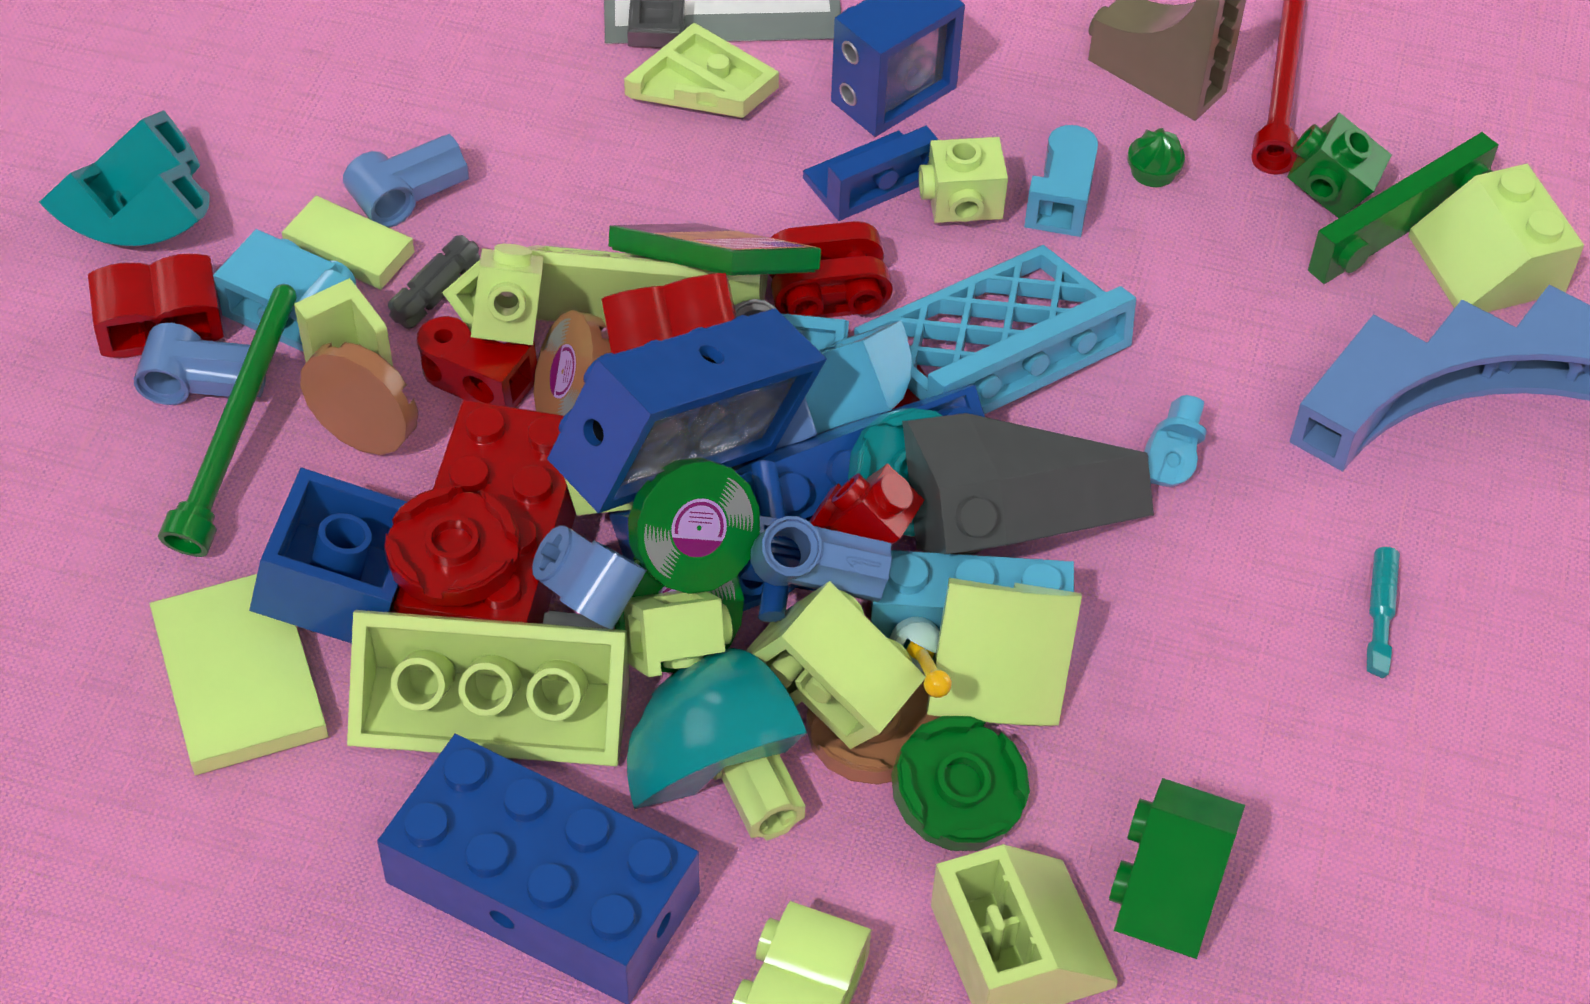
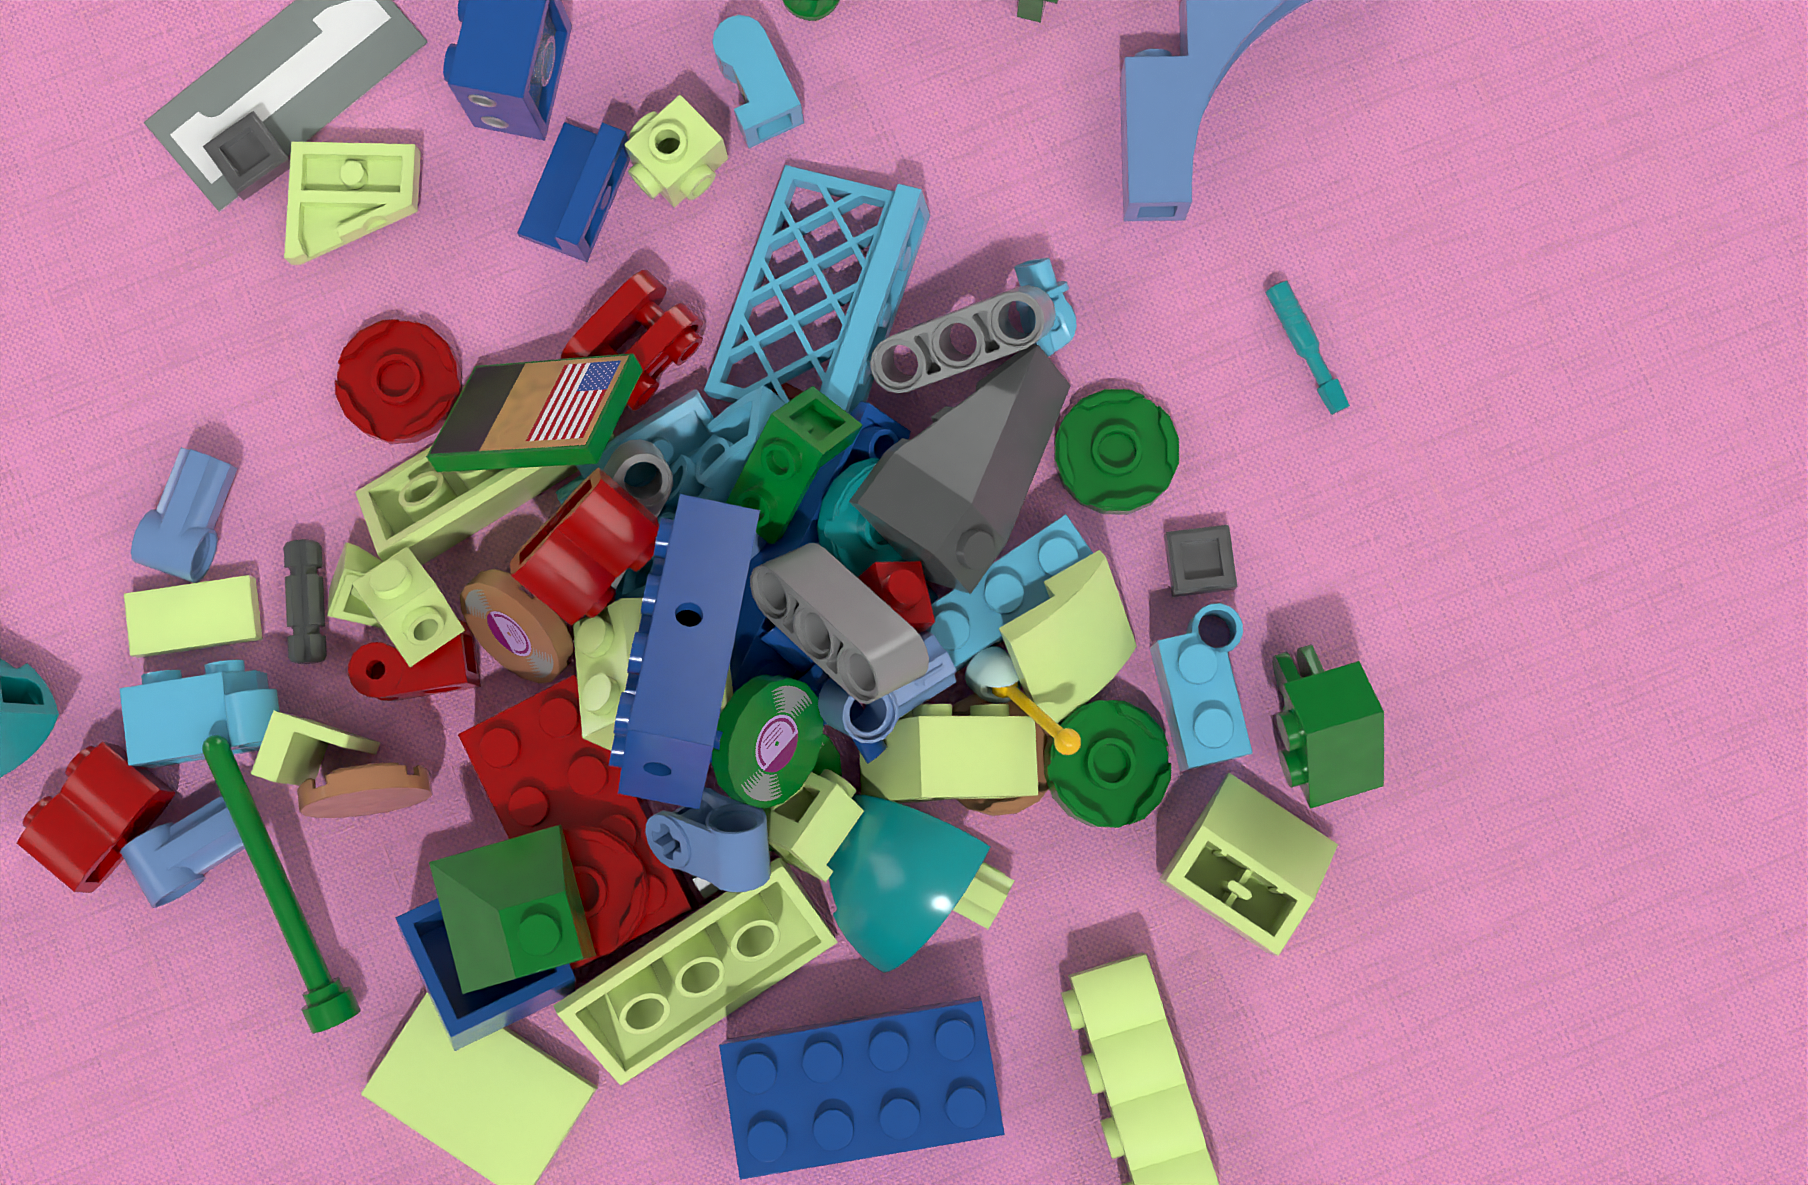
camera: 30 degrees left, 30 degrees up
(391, 510) = (512, 909): none -> green slope
(631, 192) = (398, 381): none -> red tile
(823, 471) = (839, 622): none -> light grey beam
(883, 354) = (788, 456): none -> green bracket
(1086, 777) = (1202, 693): none -> medium azure hinge
(1115, 418) = (933, 344): none -> light grey beam
(1150, 598) = (1113, 473): none -> green tile
(1165, 699) = (1200, 560): none -> flat silver tile

